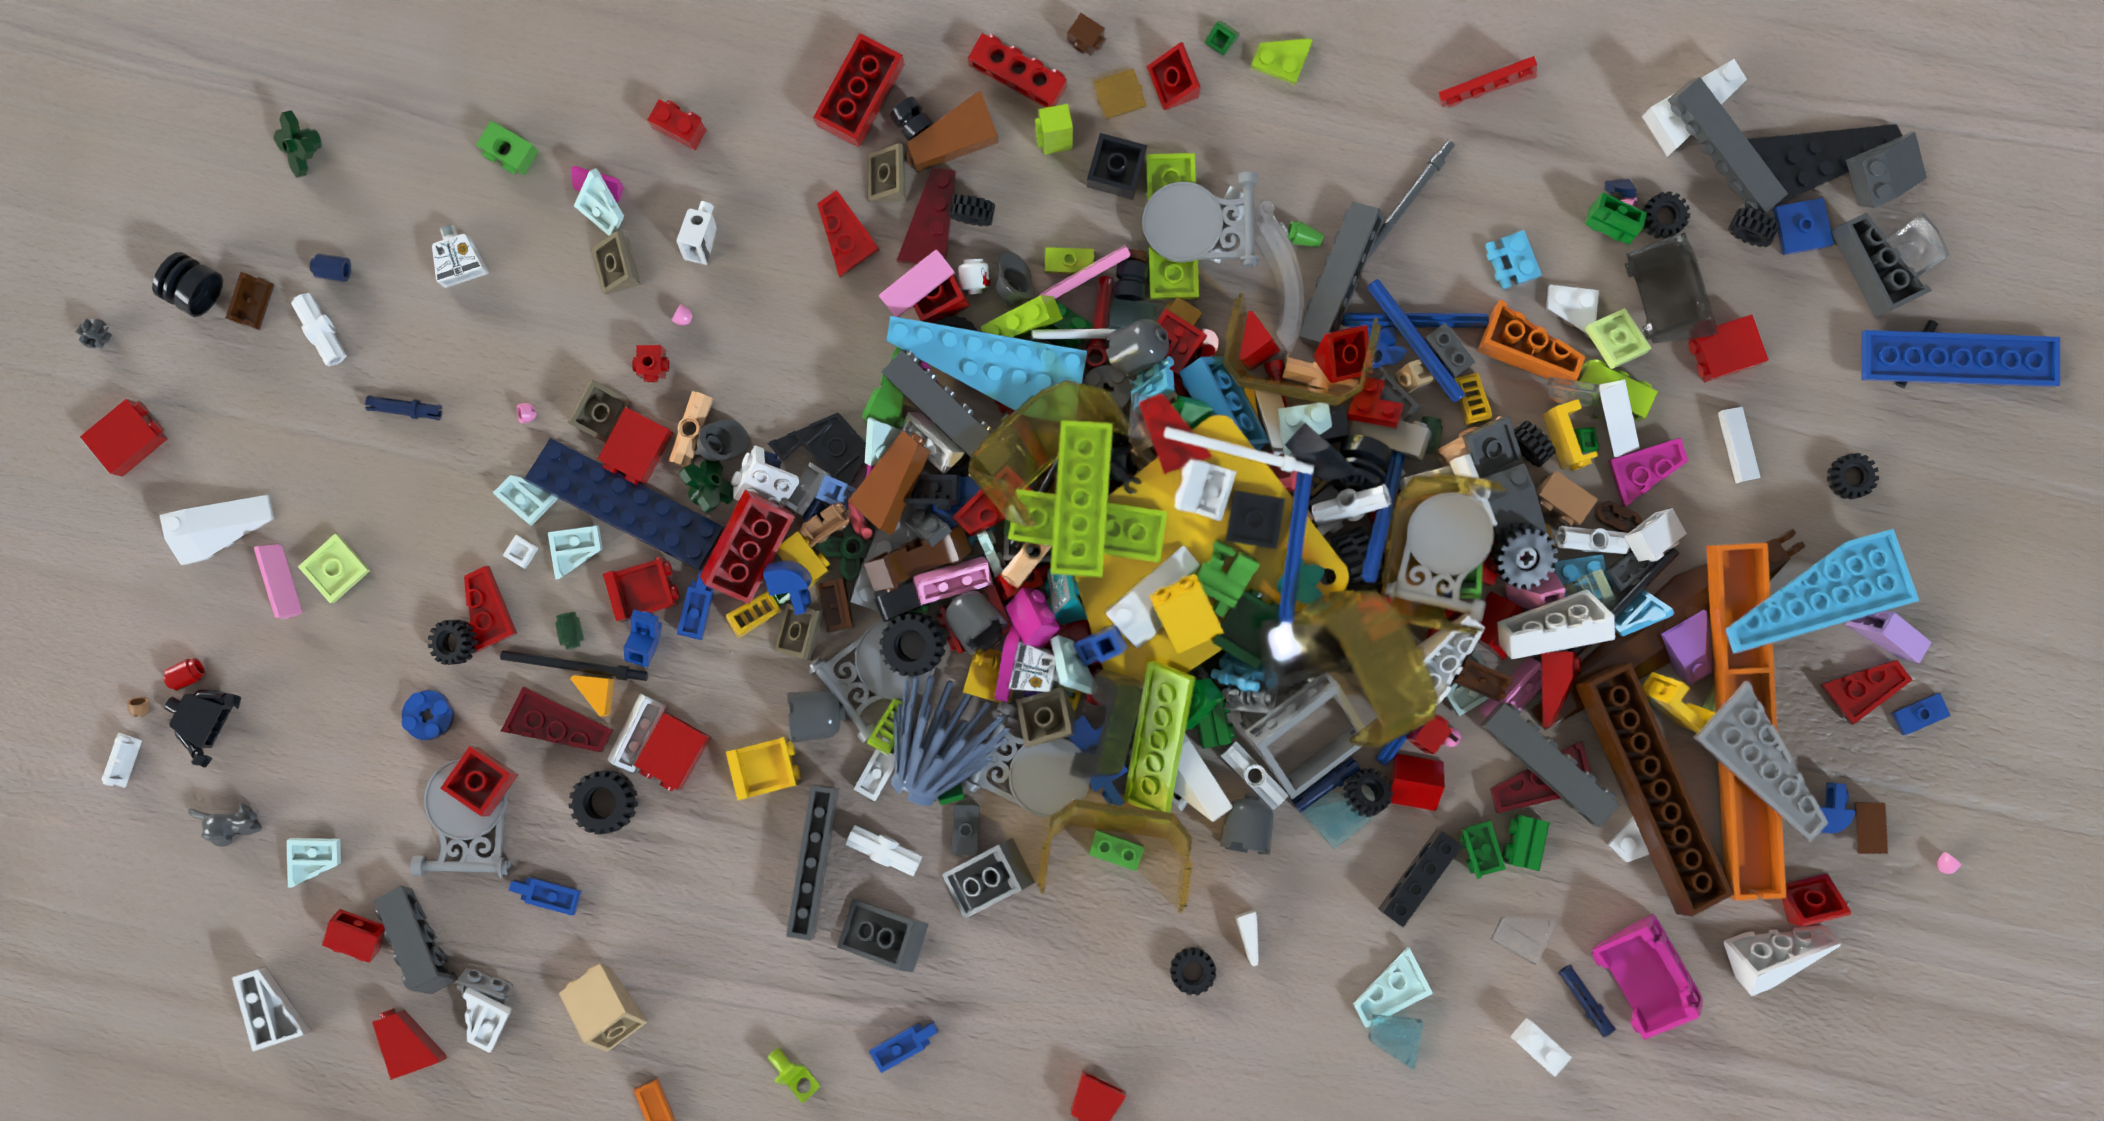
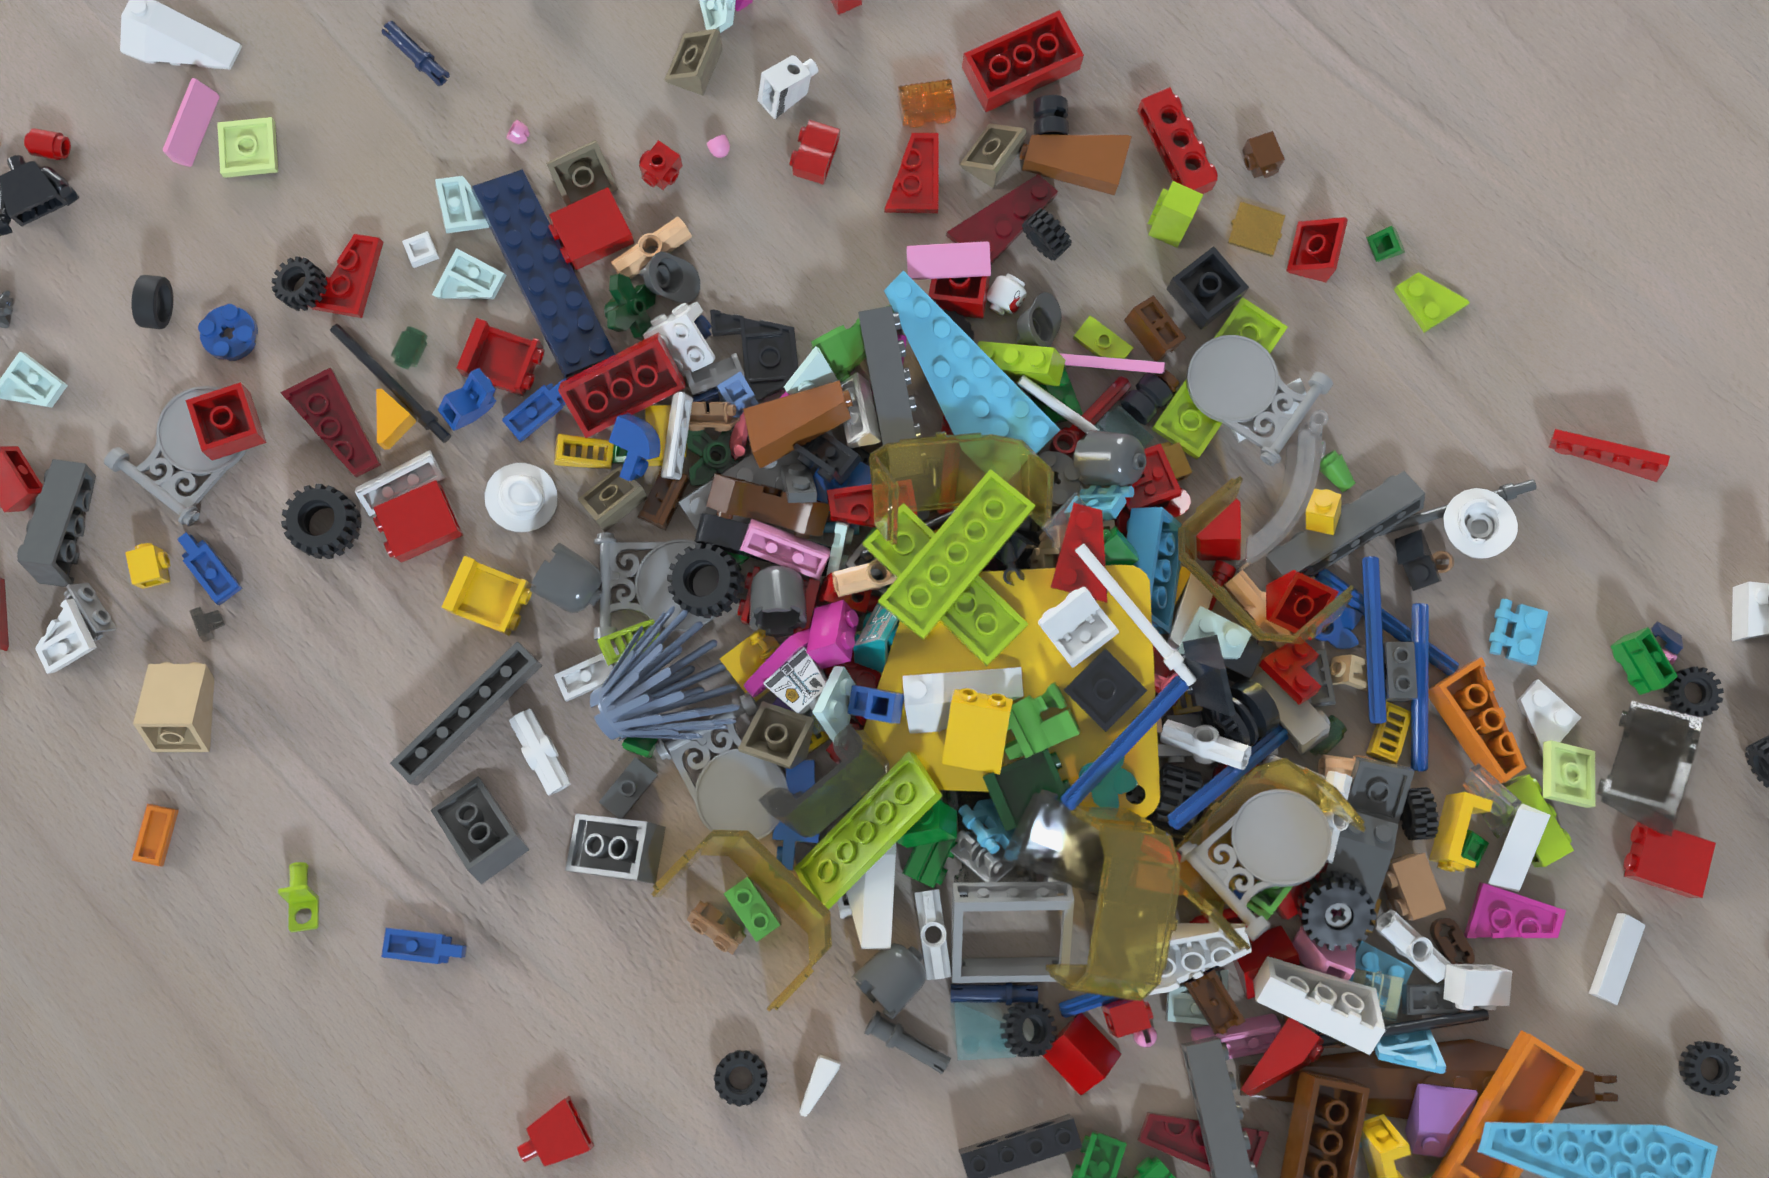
camera: 25 degrees right, 5 degrees down
(356, 734) = (152, 302): none -> black tyre
(502, 924) = (148, 565): none -> yellow brick
(576, 934) = (206, 622): none -> clear smoke tile
(733, 679) = (521, 497): none -> white hat
(756, 269) = (815, 152): none -> red brick
(811, 172) = (927, 103): none -> clear orange brick
(814, 555) = (676, 436): none -> white slope
(1099, 223) = (1154, 328): none -> reddish brown hinge
(1111, 881) = (724, 936): none -> medium nougat hinge
(1279, 864) = (895, 1036): none -> dark grey pin
(1316, 274) = (1323, 511): none -> yellow brick
(1406, 259) = (1417, 560): none -> black slope
(1428, 251) = (1443, 555): none -> medium nougat hinge
(1432, 201) = (1480, 523): none -> white hat
(1481, 365) = (1419, 706): none -> blue axle

